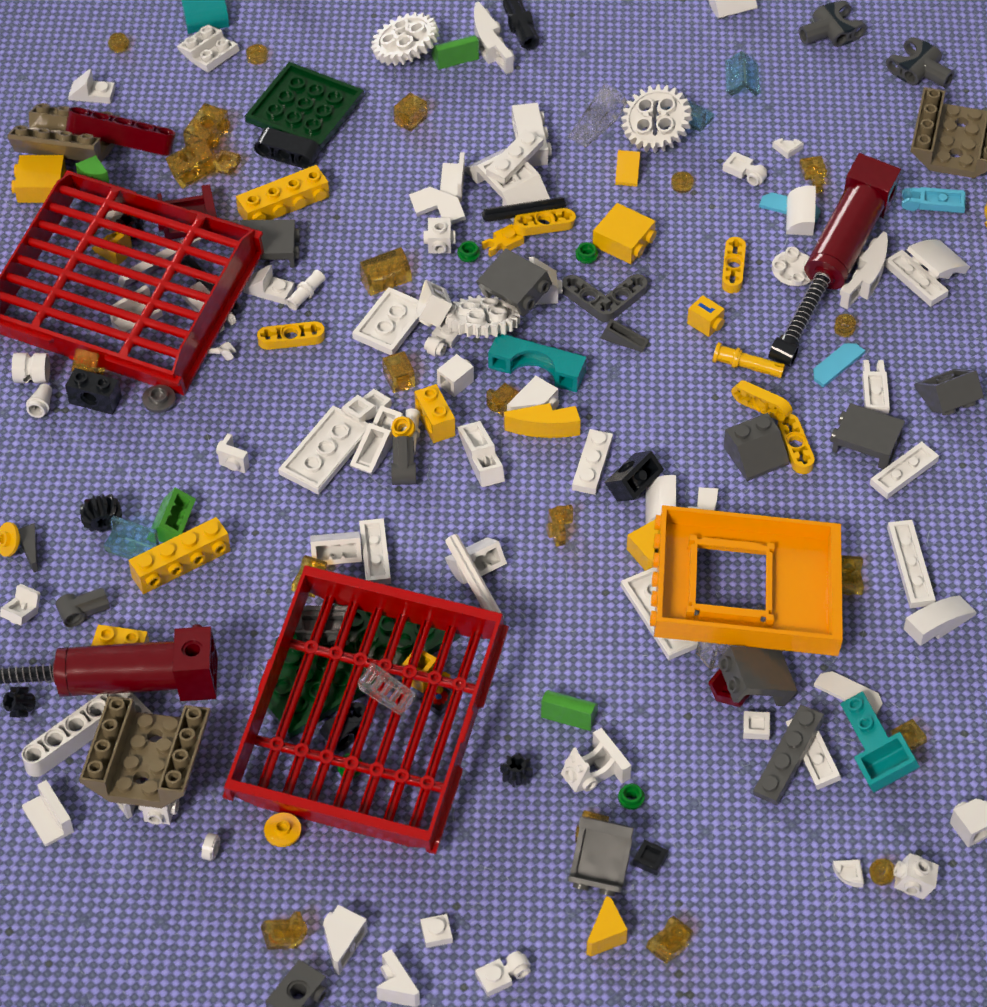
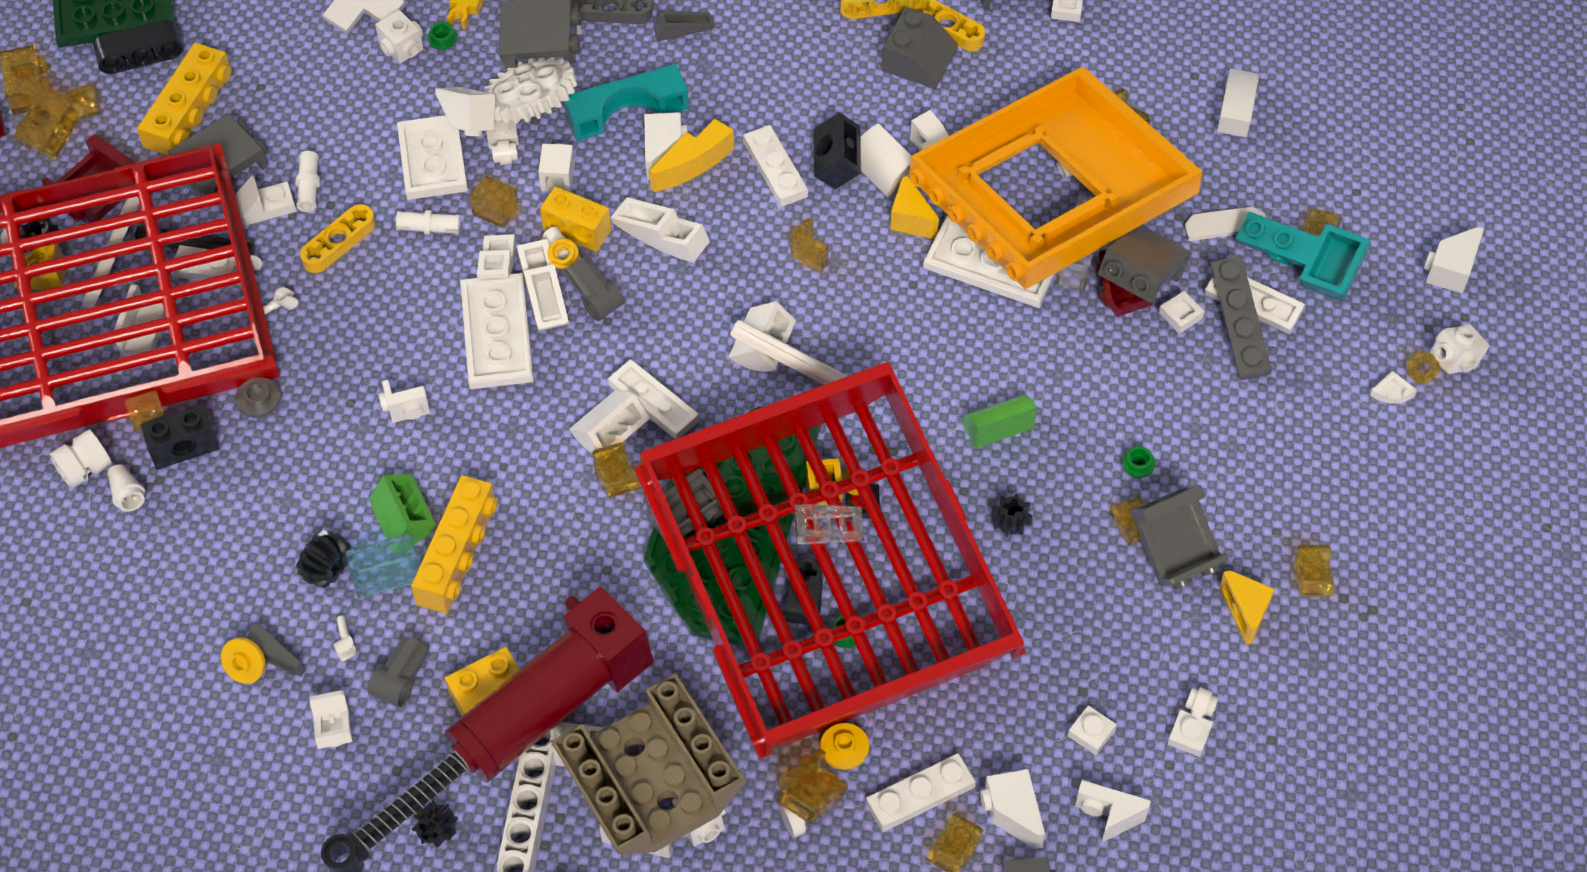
camera: 40 degrees left, 5 degrees up
(70, 572) = (345, 647): none -> white hand
(234, 835) = (810, 789): none -> clear yellow bracket
(299, 889) = (920, 792): none -> white plate
(349, 359) = (427, 222): none -> white pin
(385, 271) = (377, 109): clear yellow brick -> none
(498, 399) = (627, 161): clear yellow bracket -> none
(605, 757) = (1081, 444): white tile -> none
(650, 857) = (1216, 507): black tile -> none
(911, 563) = (1163, 67): white plate -> none

